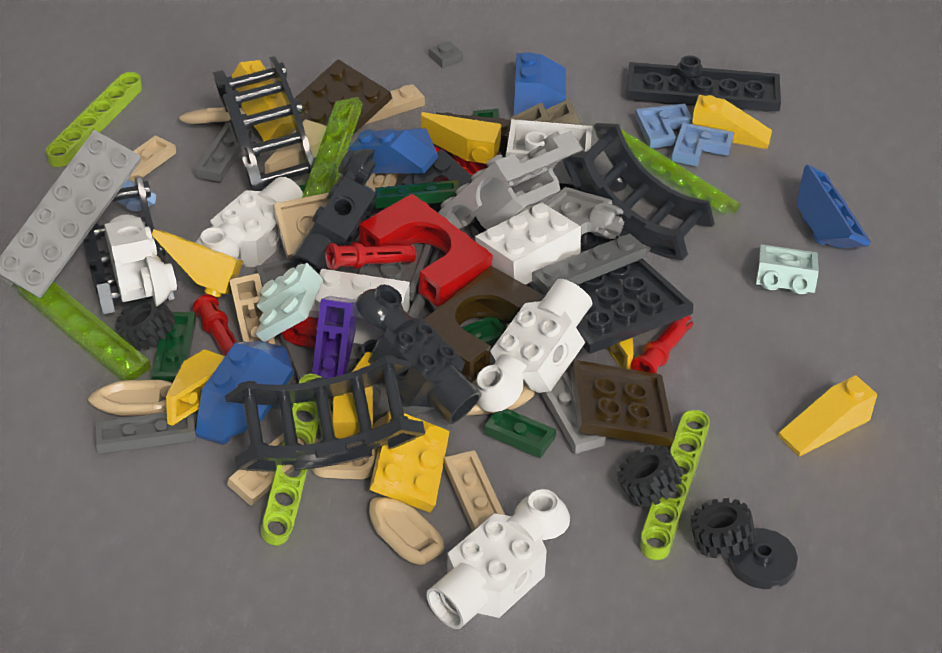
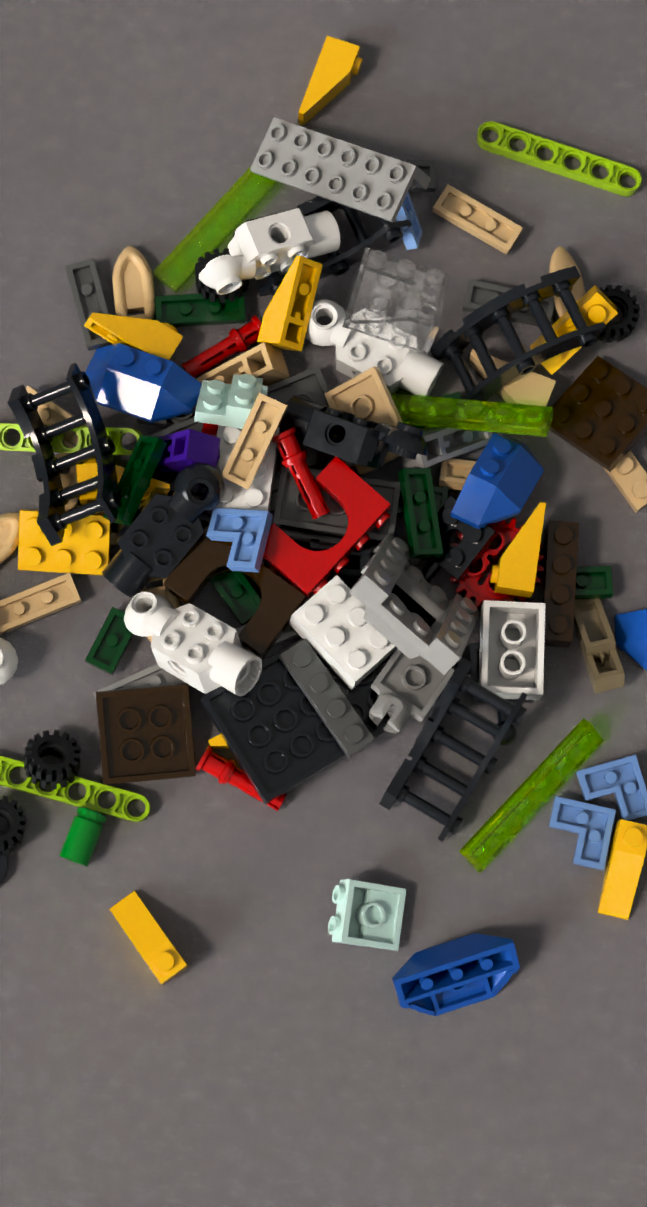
camera: 85 degrees right, 35 degrees up
(209, 192) = (396, 300): none -> clear slope
(337, 264) = (254, 441): none -> tan plate
(345, 358) = (137, 476): none -> dark green plate
(430, 281) = (247, 532): none -> medium blue plate
(728, 462) = (83, 836): none -> green piece

